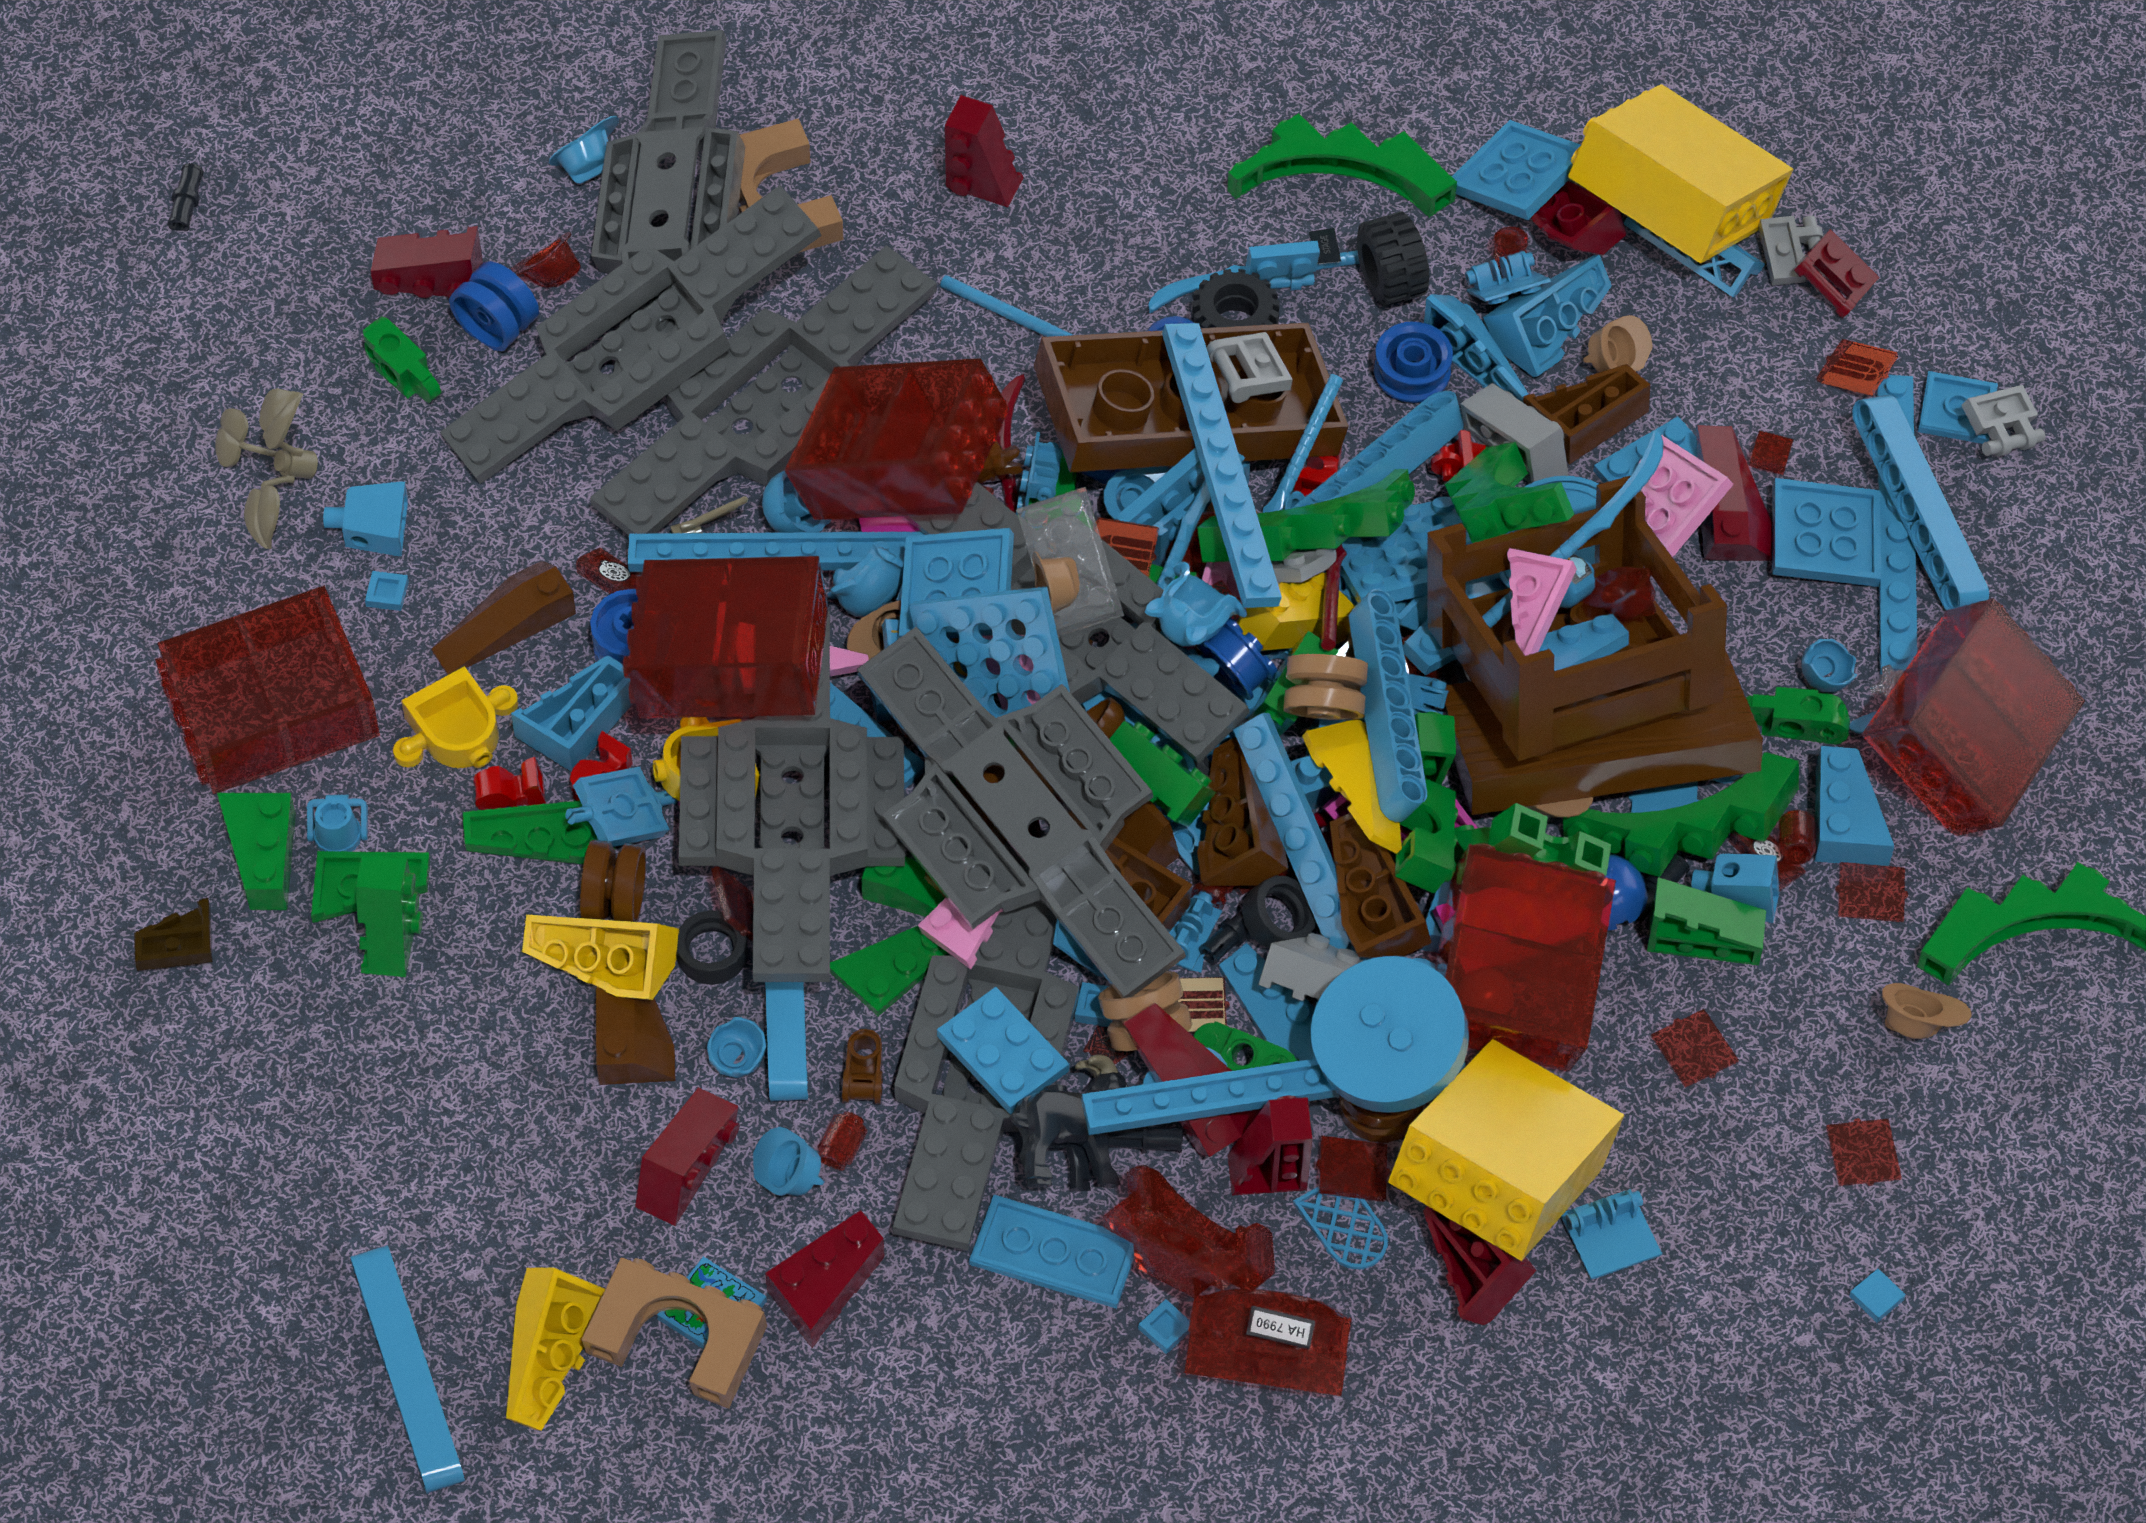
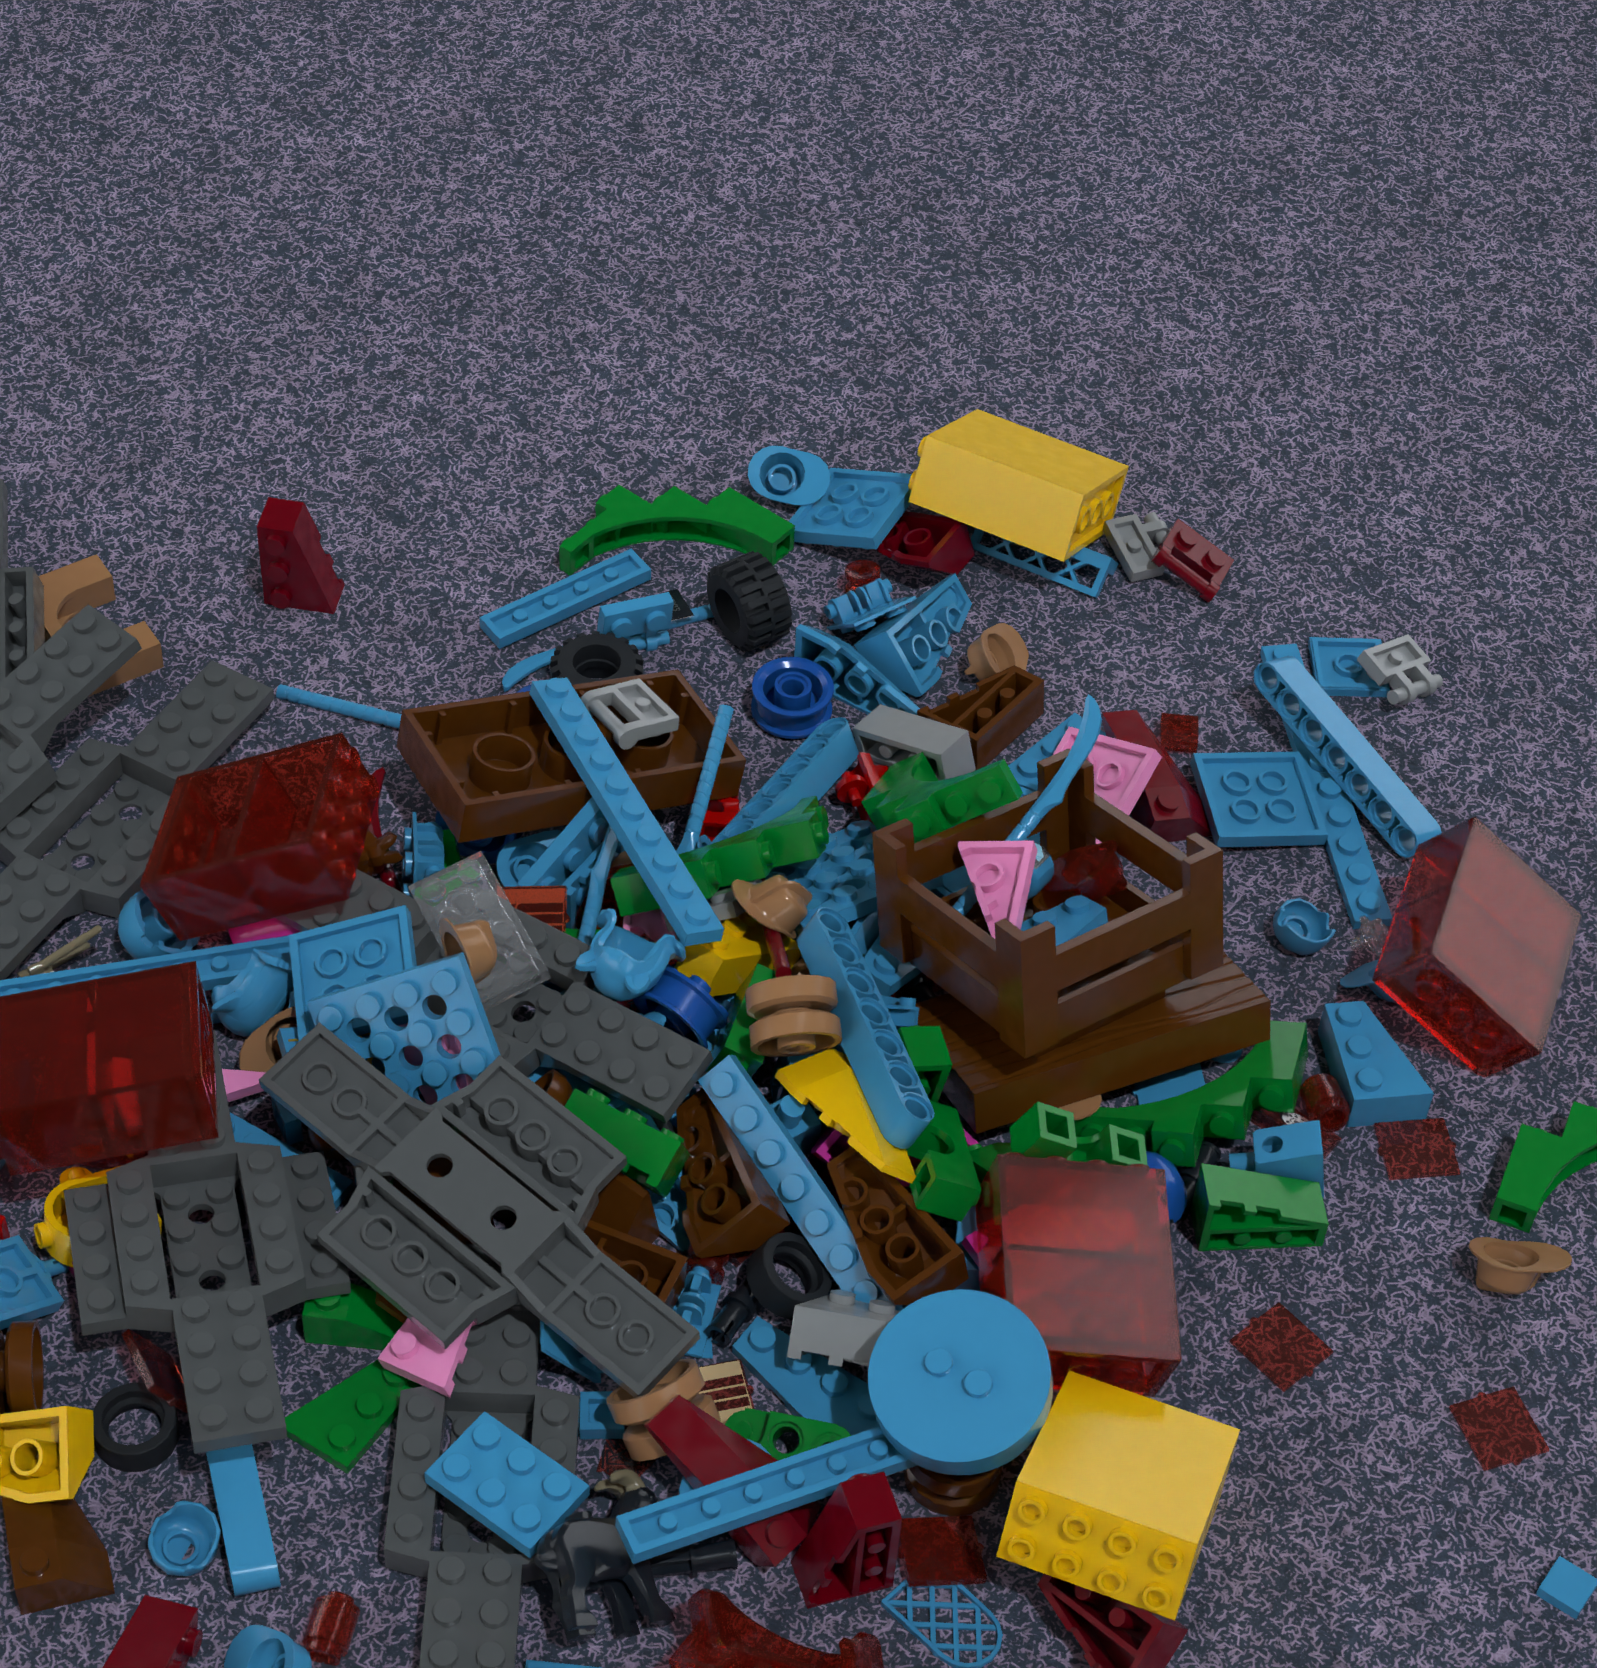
camera: 15 degrees left, 10 degrees down
(863, 1073) = (343, 1542): reddish brown piece -> none
(1225, 224) = (565, 598): none -> dark azure plate
(1336, 575) = (774, 902): none -> medium nougat piece
(1464, 126) = (789, 475): none -> dark azure piece
(1611, 1233) = (1253, 1572): dark azure hinge -> none
(1801, 715) = (1297, 978): green piece -> none
(1857, 367) = (1239, 642): clear red piece -> none

